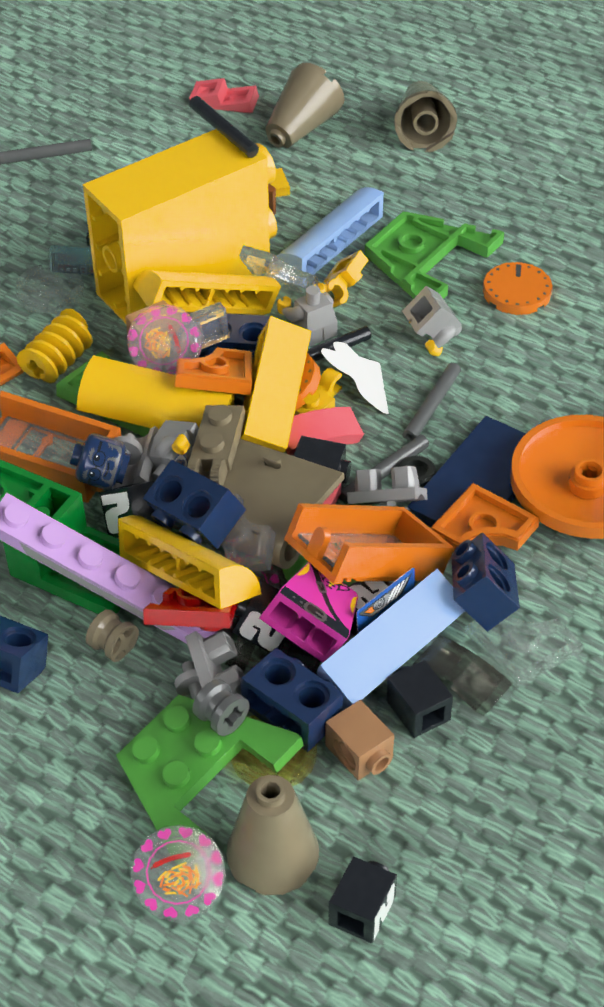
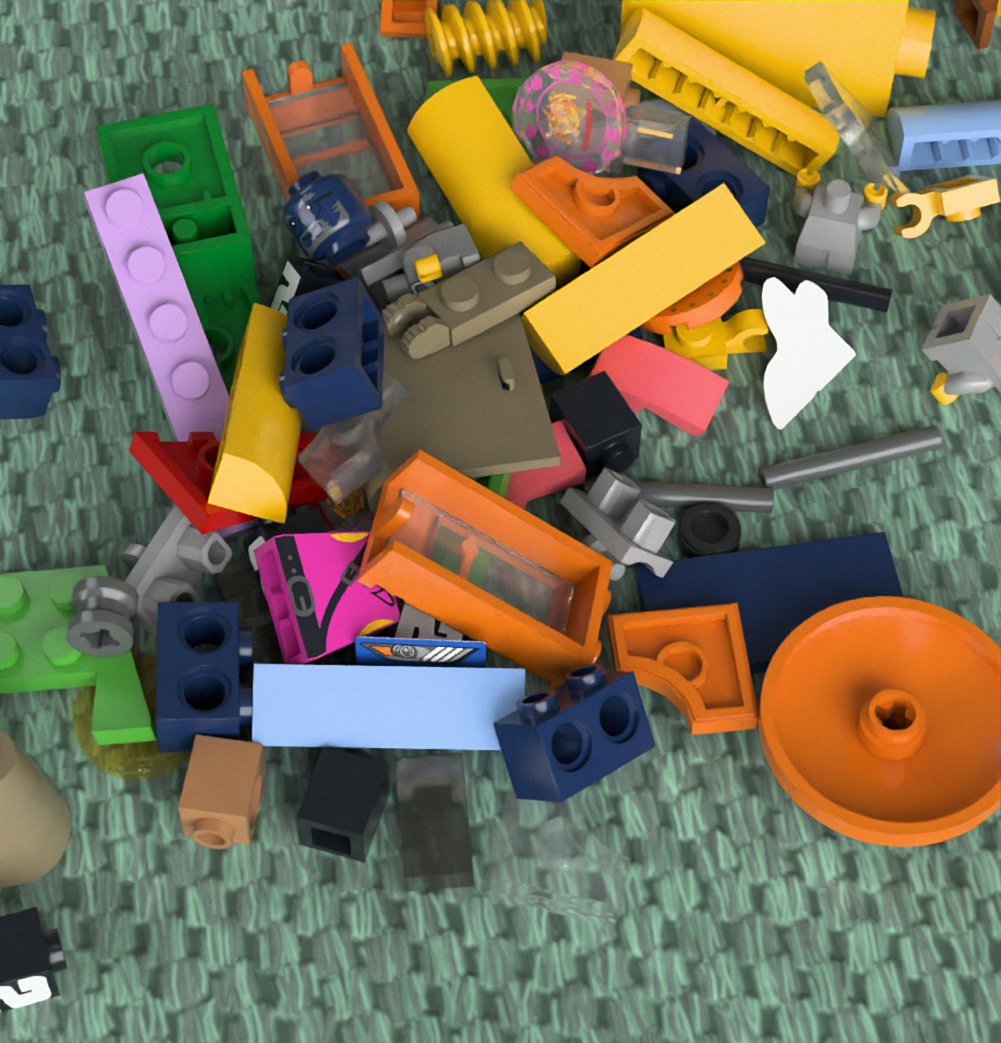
camera: 45 degrees right, 10 degrees up
(112, 635) = (118, 426): dark tan wheel -> none

